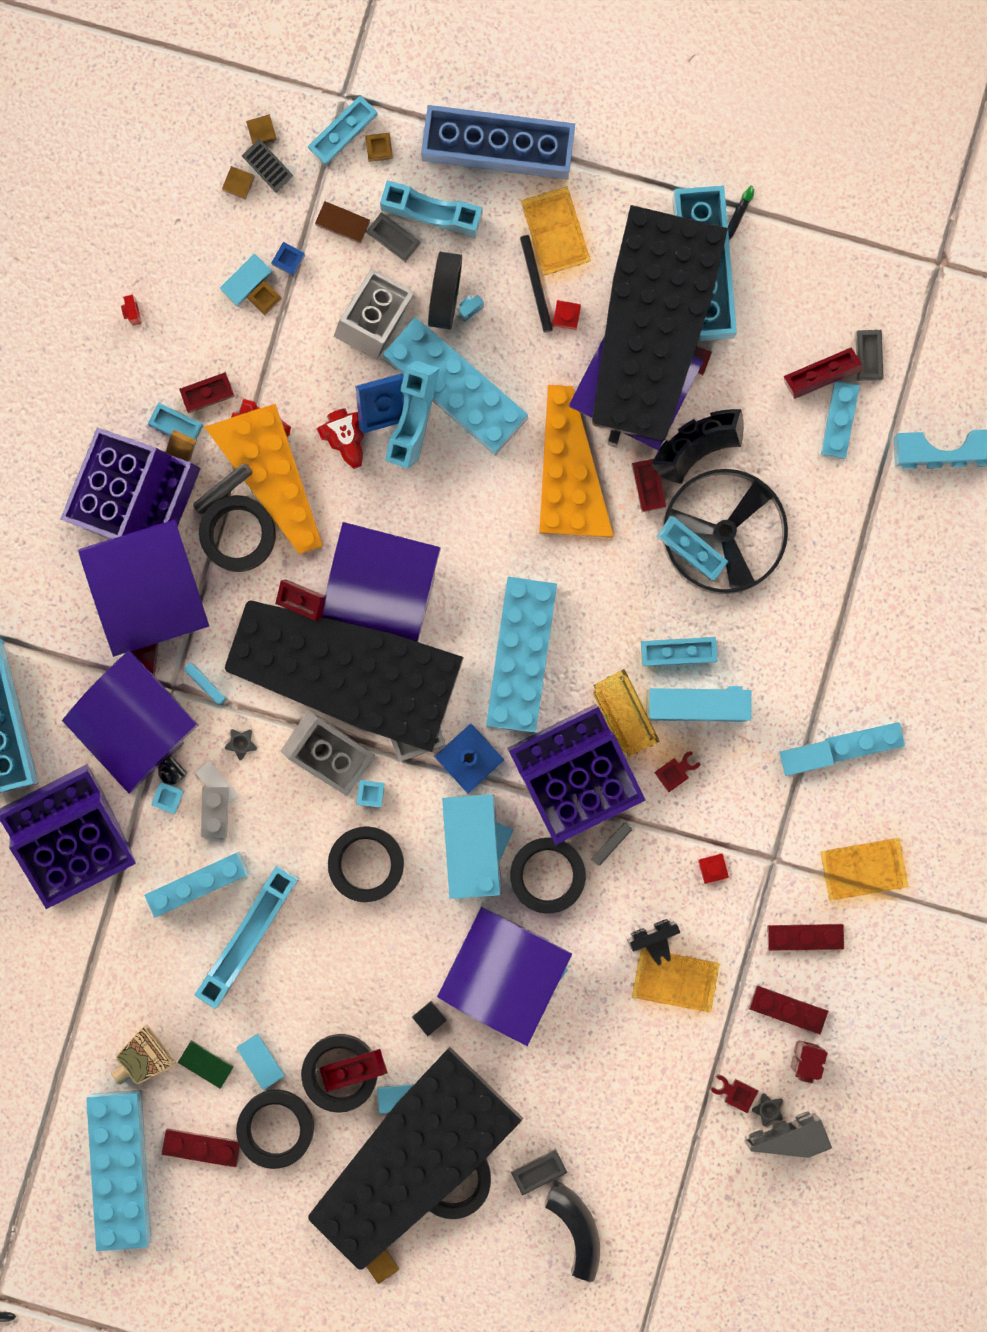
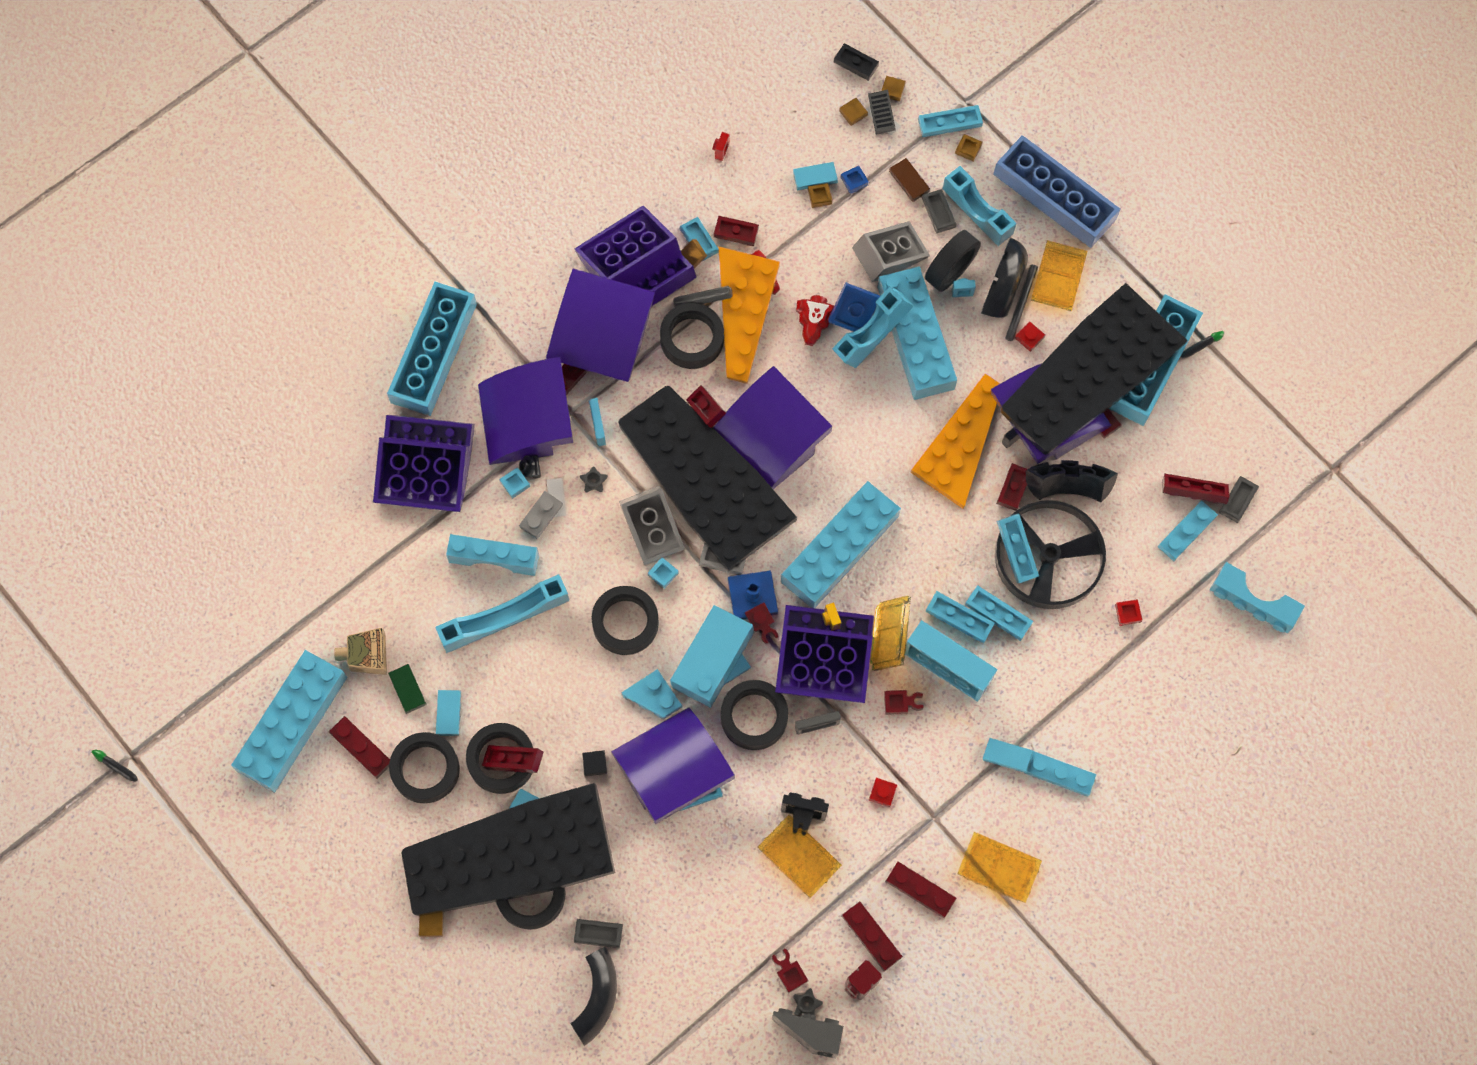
camera: 30 degrees right, 15 degrees down
(205, 125) = (856, 61): none -> black plate
(441, 917) = (654, 695): none -> medium azure wing
(493, 779) = (760, 619): none -> dark red plate
(509, 269) = (1009, 276): none -> black brick
(561, 738) = (831, 617): none -> yellow plate
(712, 623) = (999, 612): none -> medium azure plate
(834, 542) = (1128, 612): none -> red plate

